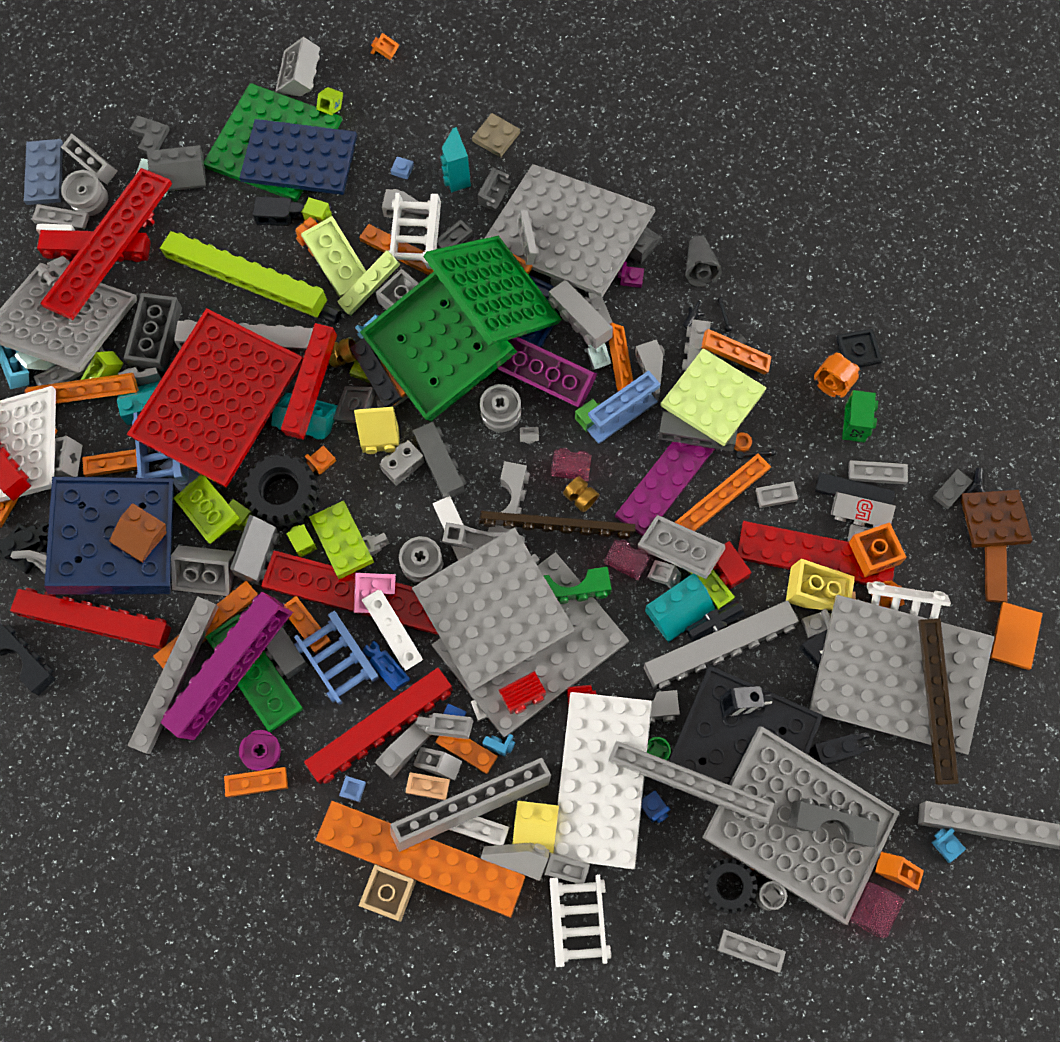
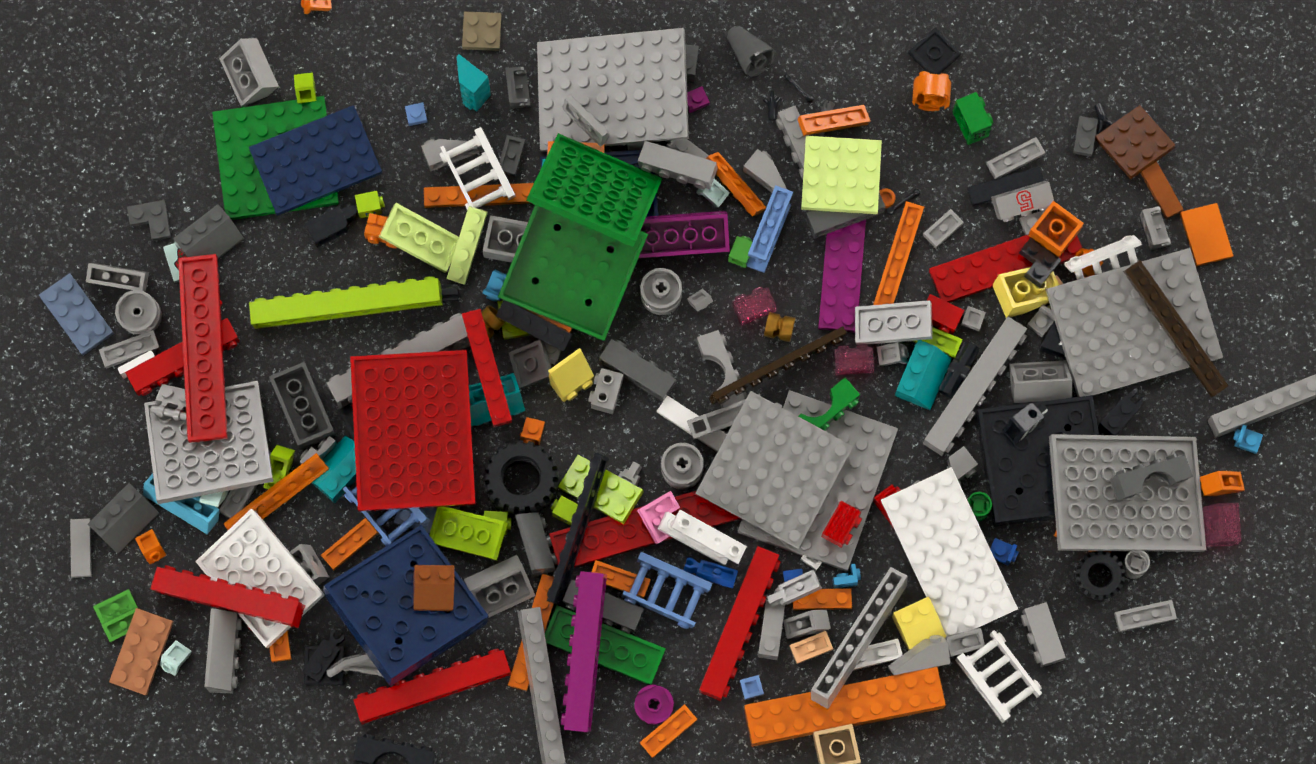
camera: 35 degrees left, 5 degrees up
(297, 557) = (576, 534): none -> black plate
(643, 908) = (1042, 635): none -> light grey brick
(692, 782) = (1023, 512): light grey tile -> none
(756, 585) = (973, 318): none -> light grey plate
(783, 675) = (1040, 381): none -> light grey slope
(848, 571) = (1043, 262): none -> black plate
(970, 602) = (1154, 228): none -> light grey hinge

